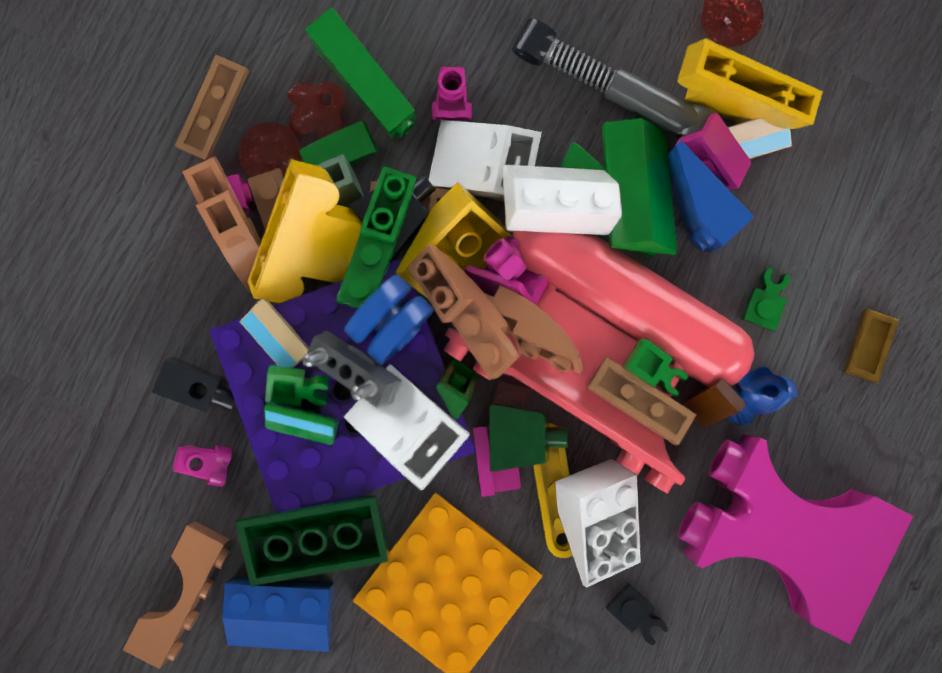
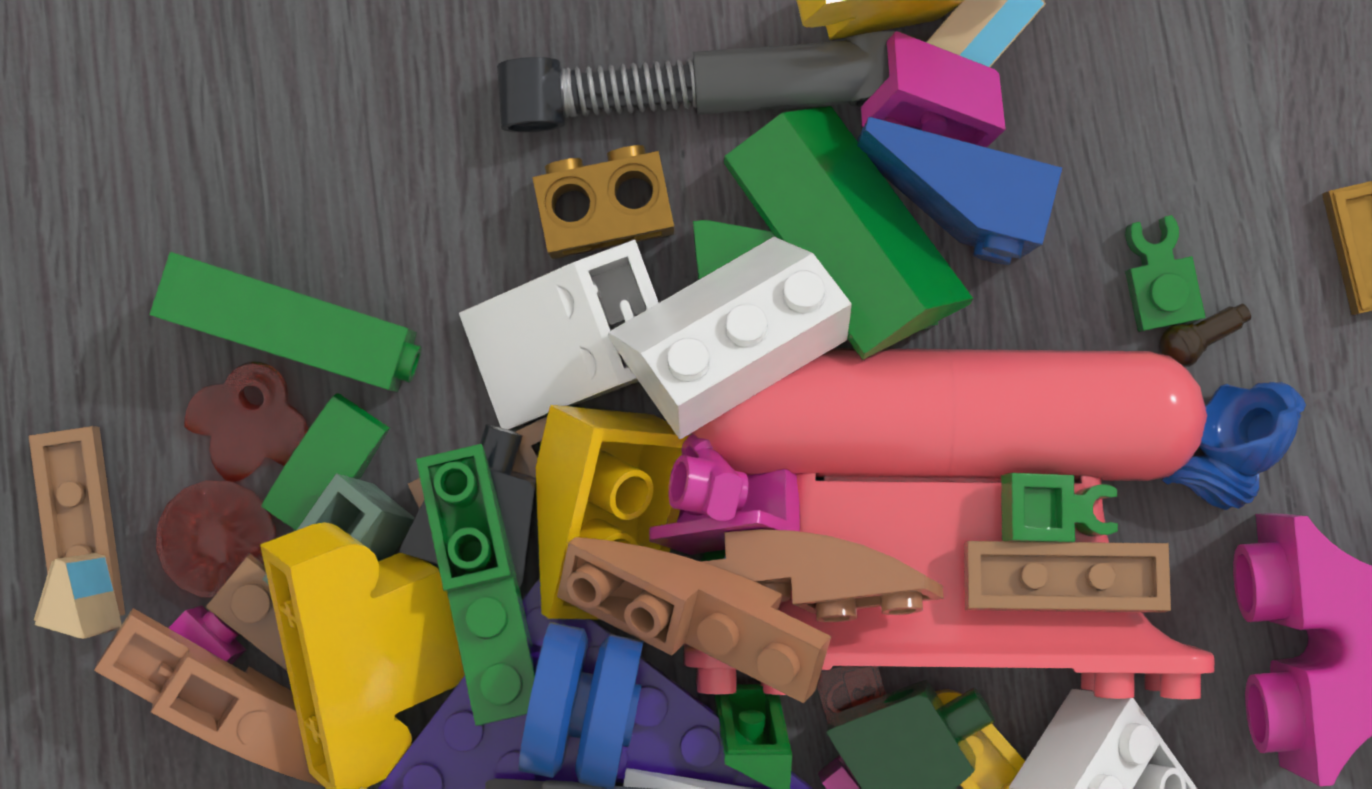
camera: 30 degrees left, 0 degrees up
(195, 135) = (78, 597): none -> tan slope
(452, 104) = (460, 278): dark pink plate -> none
(534, 116) = (607, 220): none -> pearl gold brick
(714, 403) = (1182, 501): reddish brown tile -> none
(764, 337) = (1189, 341): none -> dark brown piece

